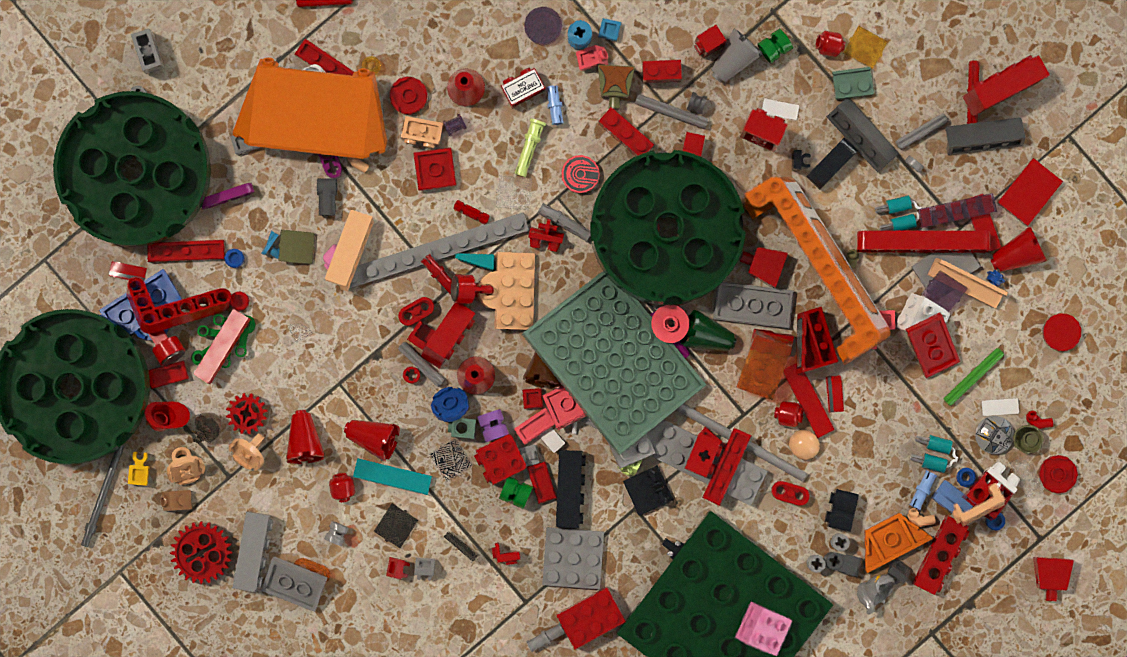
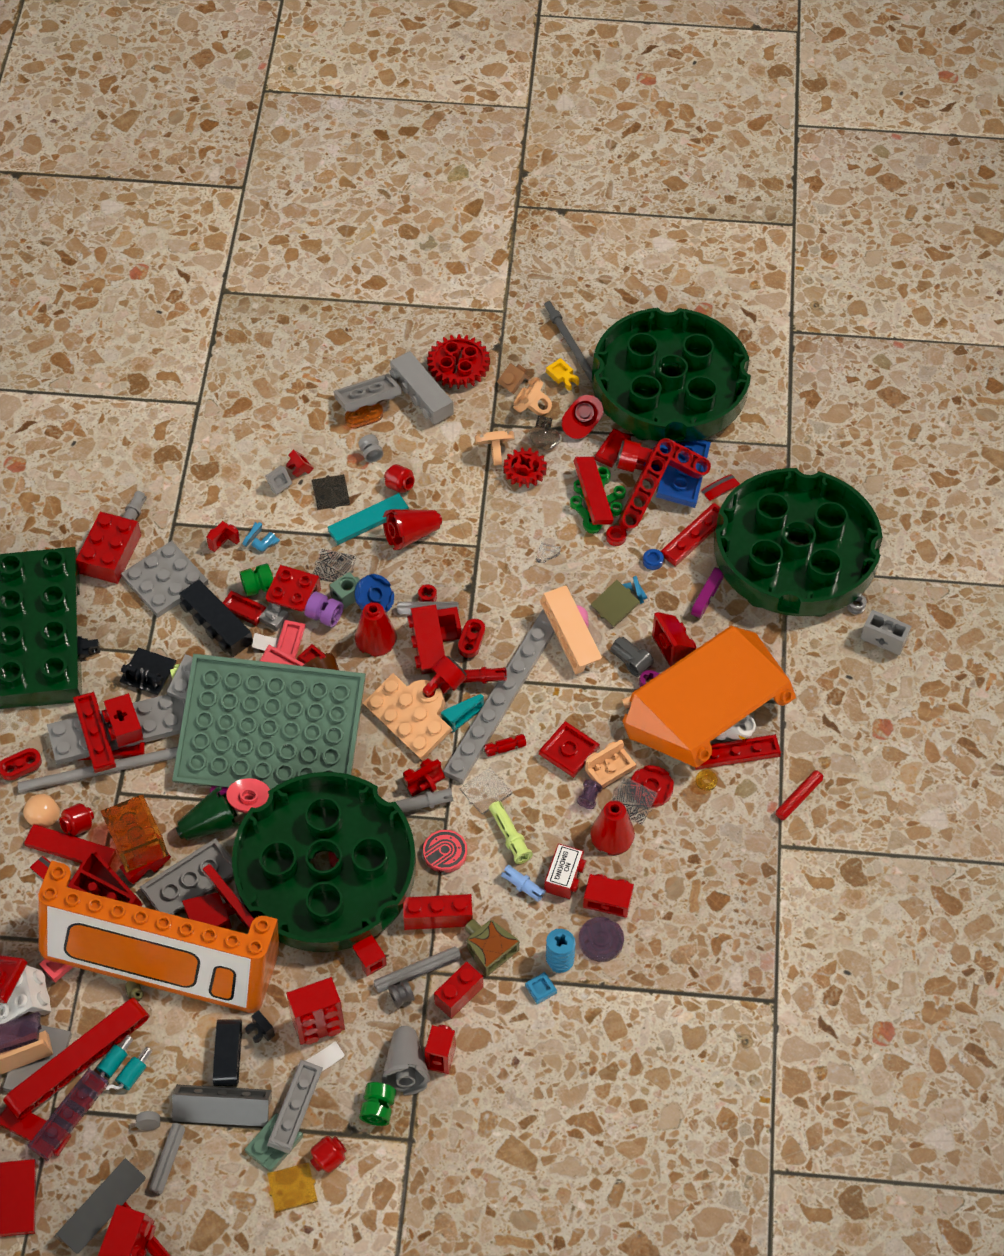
camera: 135 degrees right, 30 degrees down
(289, 179) = (671, 638): none -> red slope
(303, 440) = (462, 482): red cone -> none
(432, 95) = (635, 798): none -> clear piece
(461, 546) = (264, 513): clear smoke tile -> none
(485, 524) = (269, 540): none -> dark azure piece
(512, 46) = (608, 895): none -> red brick
(592, 57) = (530, 949): coral bracket -> none
(746, 269) = (227, 894): none -> red tile
(823, 90) = (295, 1106): none -> light grey tile

